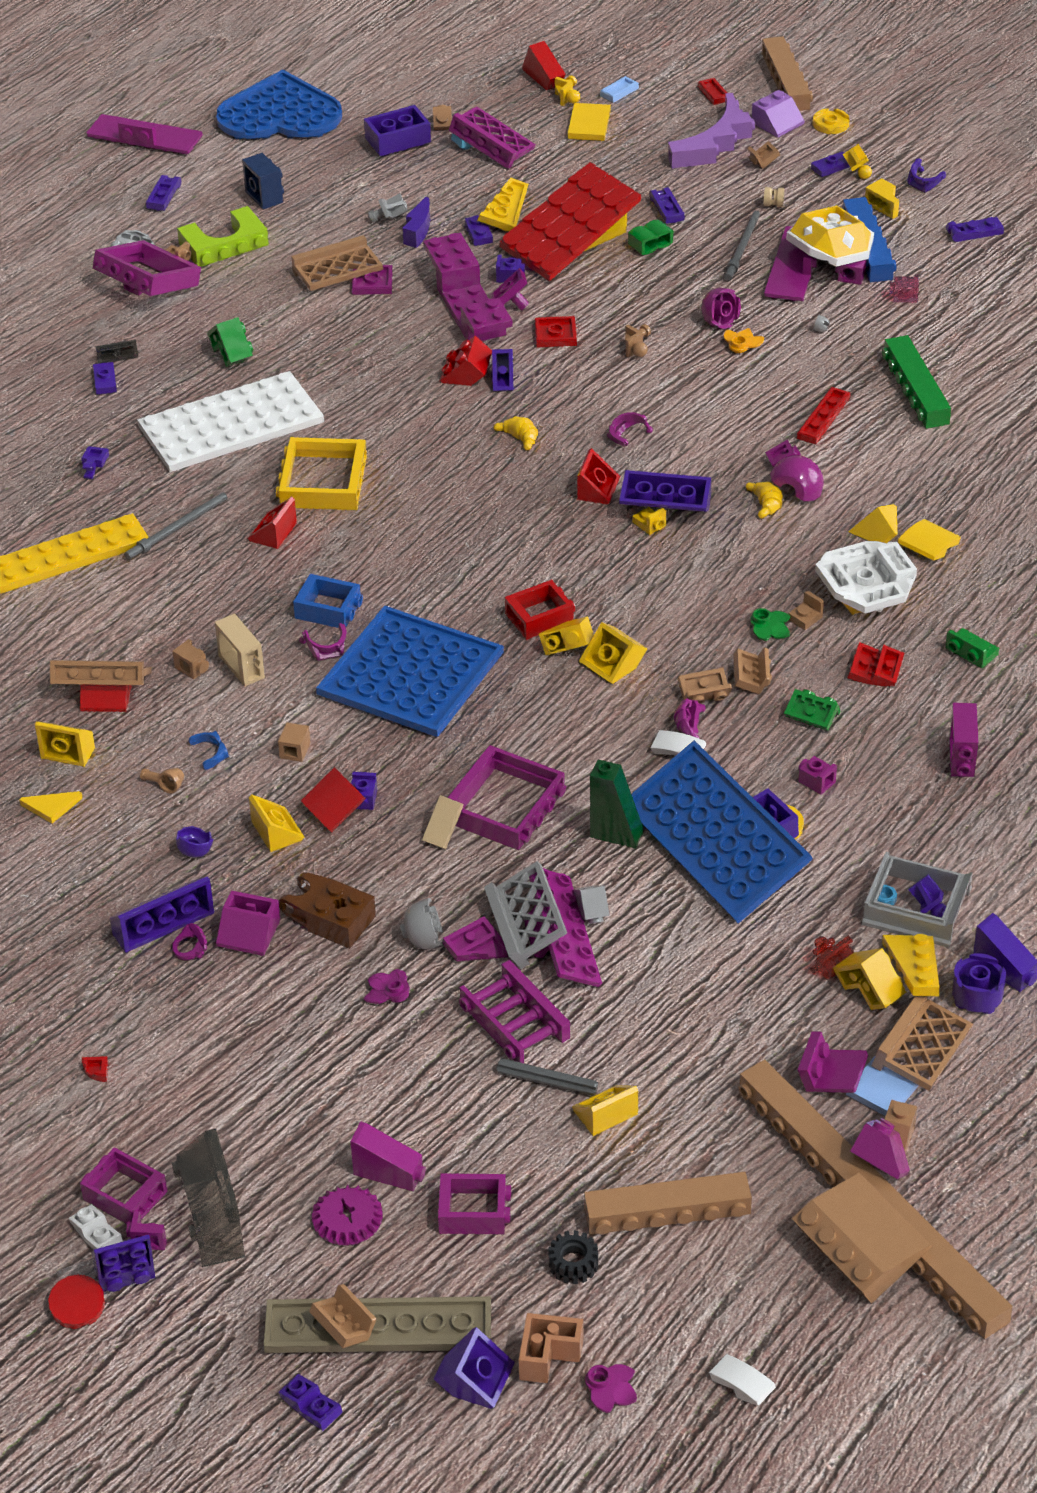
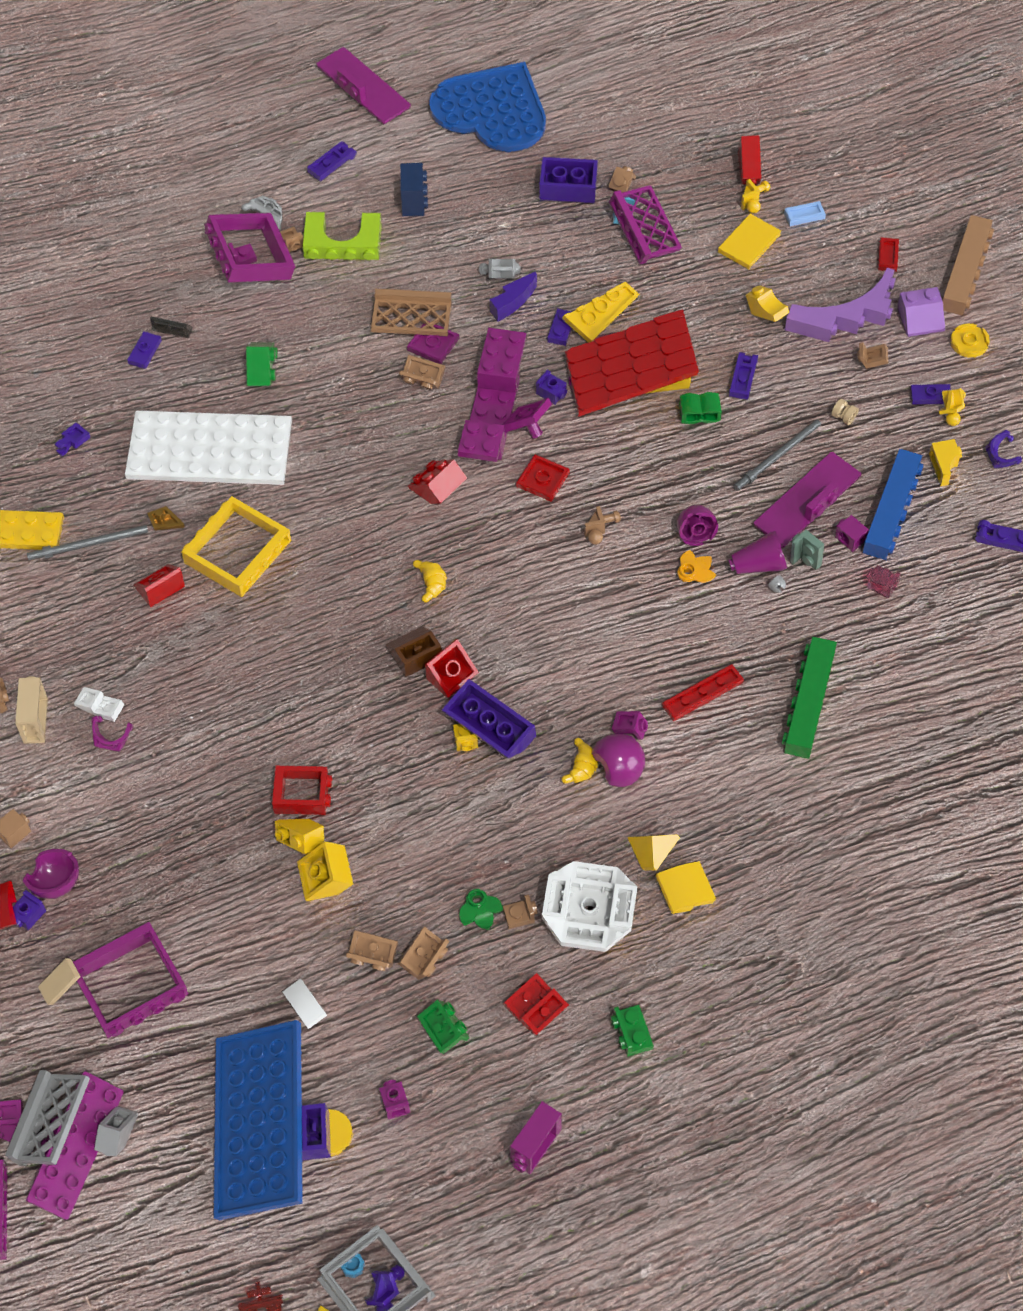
camera: 30 degrees right, 15 degrees up
(234, 483) = (164, 519): none -> pearl gold piece
(287, 630) = (99, 705): none -> white slope
(327, 615) = (130, 676): blue window -> none
(368, 750) = (53, 875): none -> magenta cylinder
(384, 299) = (422, 371): none -> medium nougat bracket
(410, 670) = (154, 800): blue plate -> none
(502, 369) = (462, 503): dark purple slope -> none
(554, 478) = (414, 650): none -> reddish brown slope
(612, 807) = (187, 1051): dark green slope -> none
(623, 422) = (514, 616): magenta helmet -> none
(644, 151) = (765, 304): none -> yellow arch
(687, 716) = (332, 977): magenta piece -> none
(794, 306) = (759, 556): none -> magenta cone
(830, 287) = (808, 548): none -> sand green bracket
(832, 236) = (847, 495): yellow piece -> none

